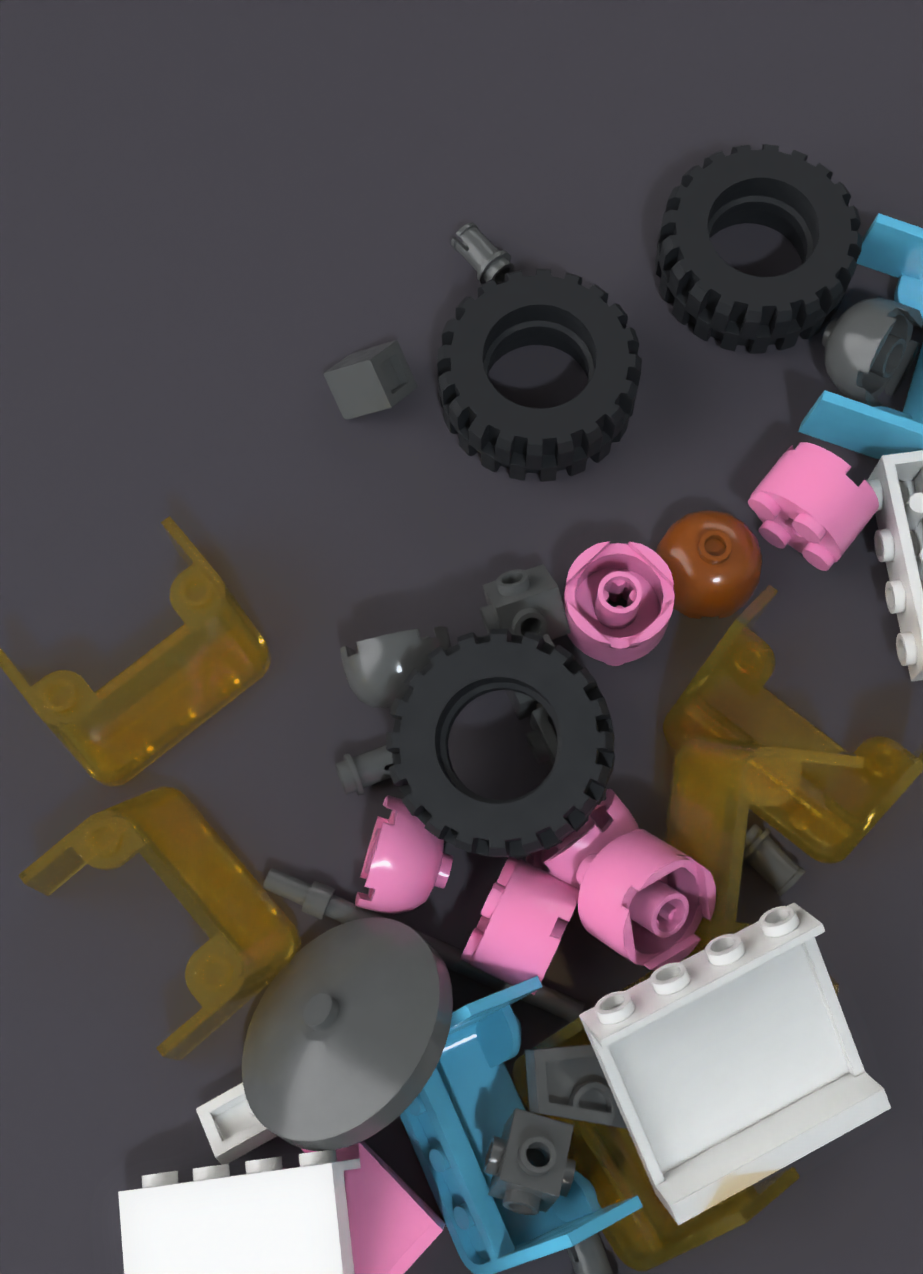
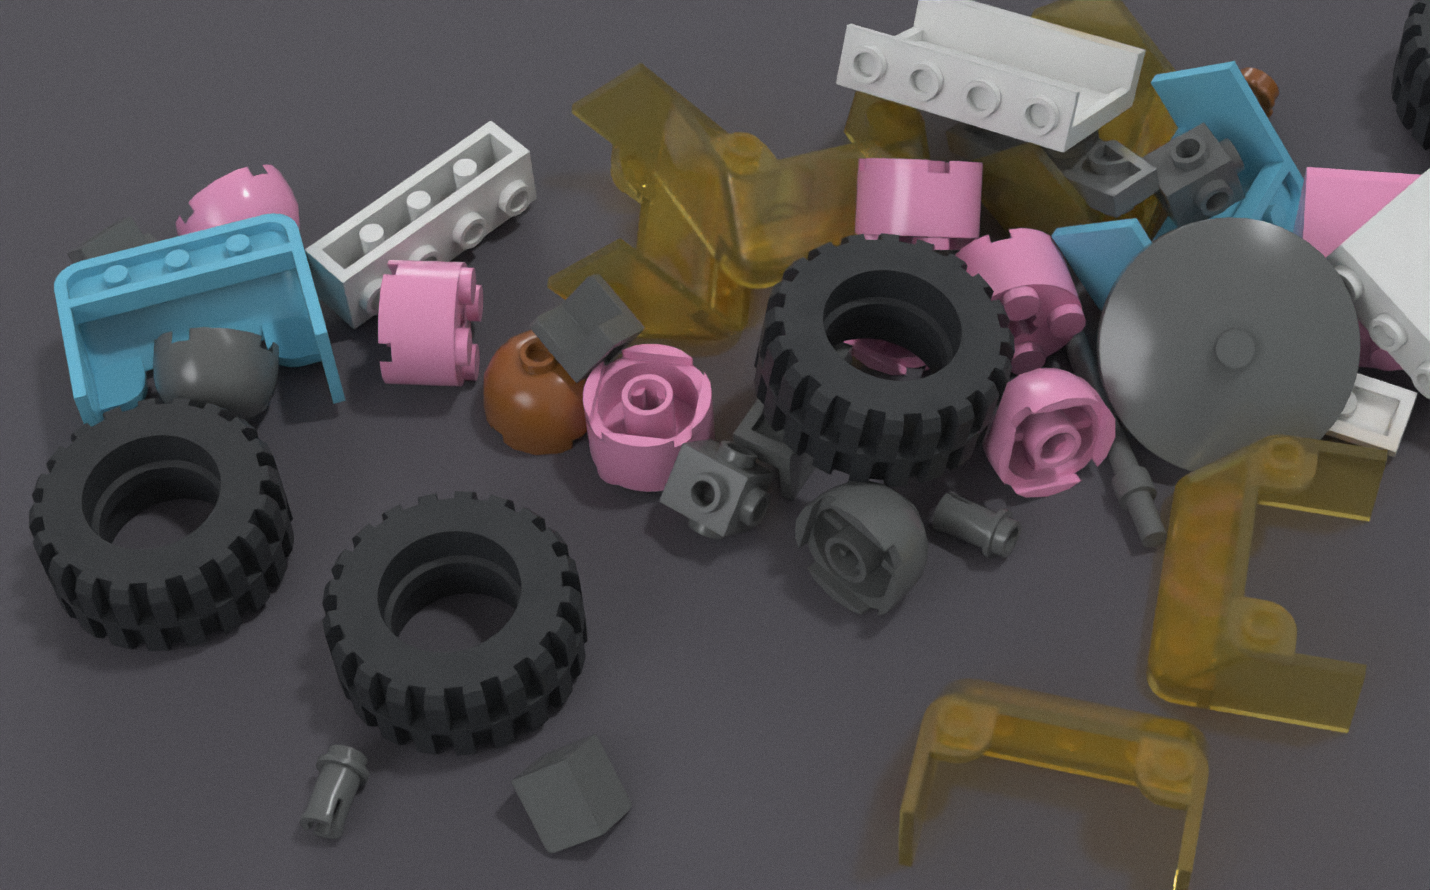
camera: 125 degrees left, 20 degrees down
(707, 585) = (587, 328): none -> dark grey panel

